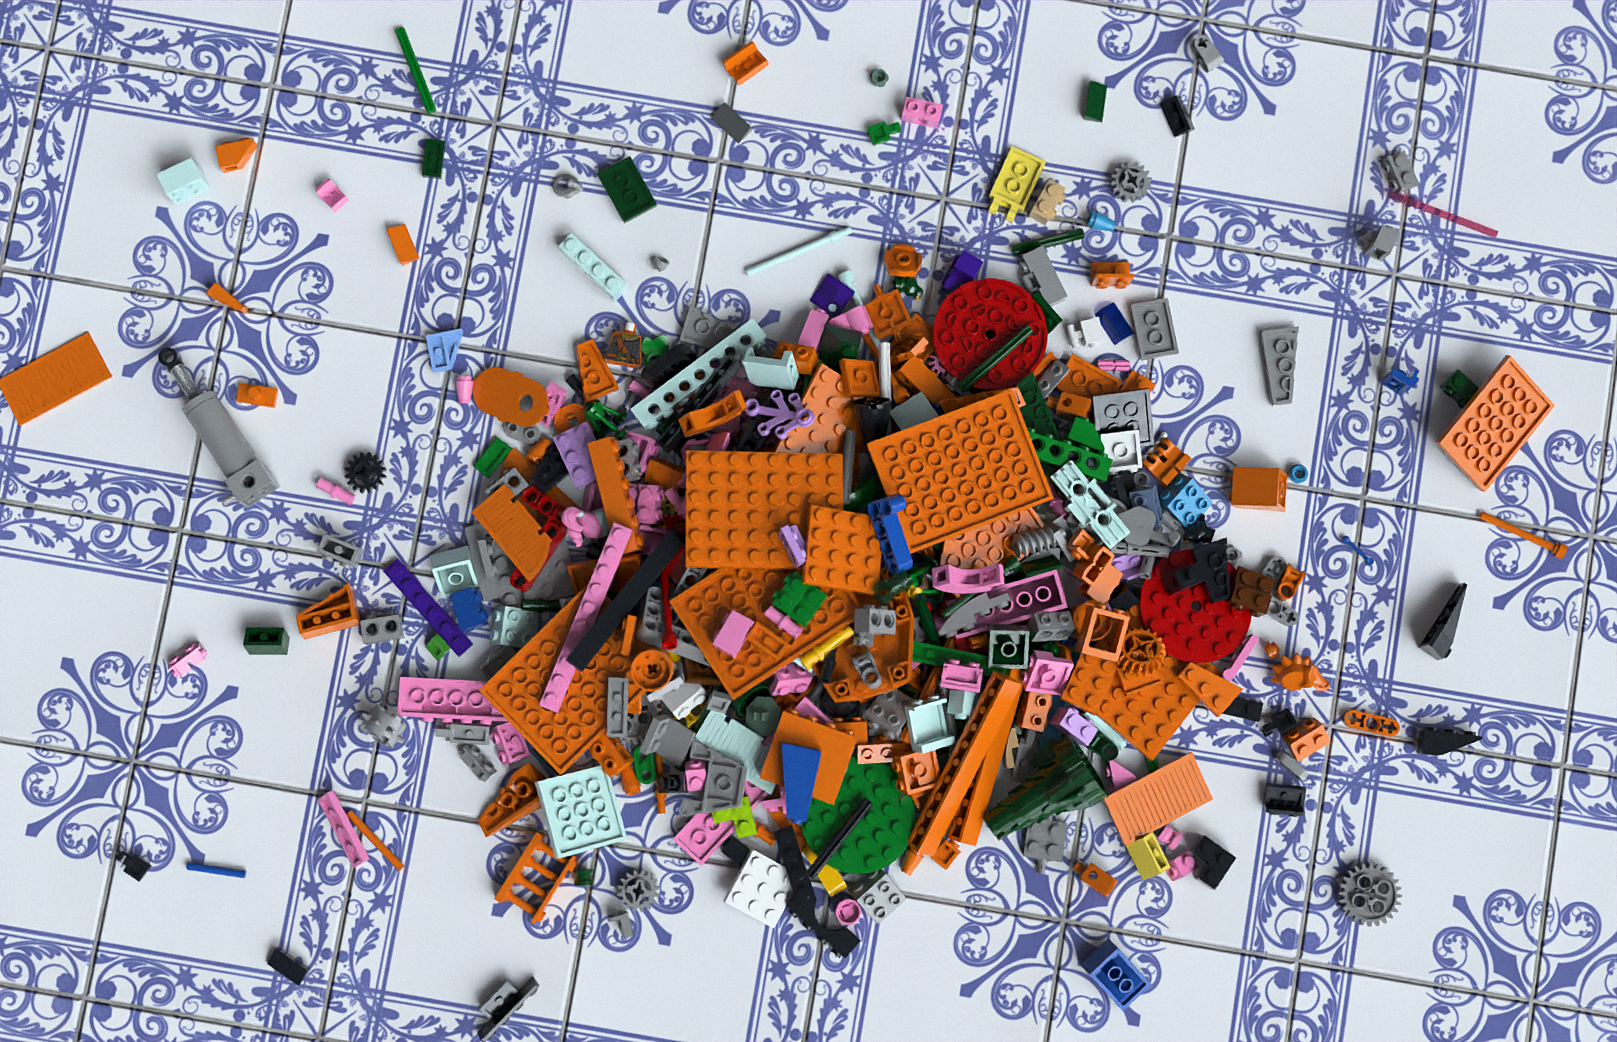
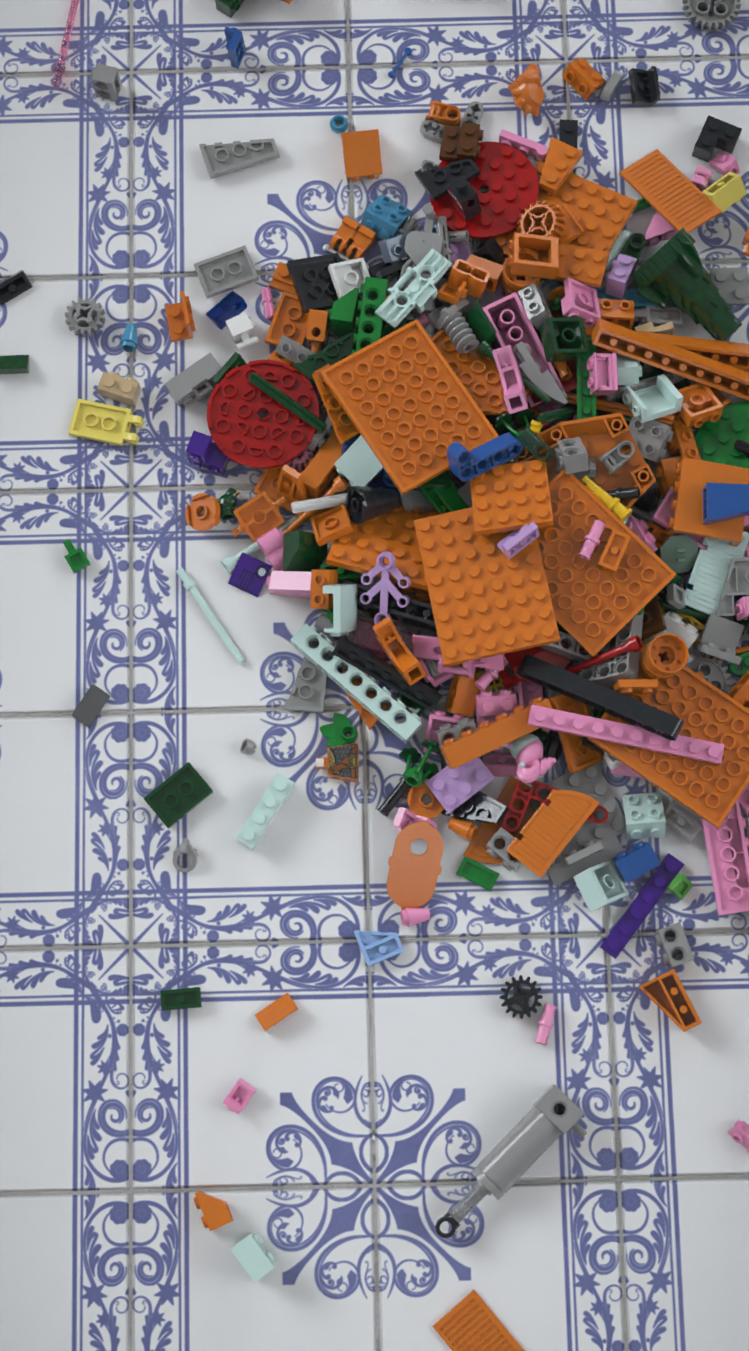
camera: 95 degrees left, 5 degrees down
(221, 295) = (367, 1188): orange slope -> none
(257, 395) = (463, 1129): orange tile -> none
(266, 641) = (713, 1059): dark green brick -> none
(336, 549) = (606, 1004): light grey brick -> none
(415, 70) = (89, 1039): green axle -> none
(521, 433) = (449, 848): light grey plate -> none
(540, 605) = (616, 792): dark green pin -> none
(594, 373) = (372, 788): orange wing -> none
(617, 707) = (706, 686): light grey plate -> none
(640, 390) = (383, 734): bright pink pin -> none
(668, 365) = (352, 715): black beam -> none
(733, 633) = (614, 584): bright pink brick -> none
(745, 63) = (27, 703): orange bracket -> none
(798, 599) = (567, 531): green plate -> none
(848, 464) = (407, 520): light grey axle -> none
(879, 73) = (19, 566): sand green plate -> none
(921, 112) = (49, 522): bright pink brick -> none
(1047, 242) = (158, 383): dark green axle -> none
(1145, 479) = (373, 256): light grey plate -> none
(1199, 533) = (413, 198): black animal -> none
(1272, 649) = (508, 119): orange plate -> none
(1281, 721) = (573, 100): black plate -> none
(1385, 721) = (553, 33): orange beam -> none
(1400, 172) = (32, 80): light grey bracket -> none

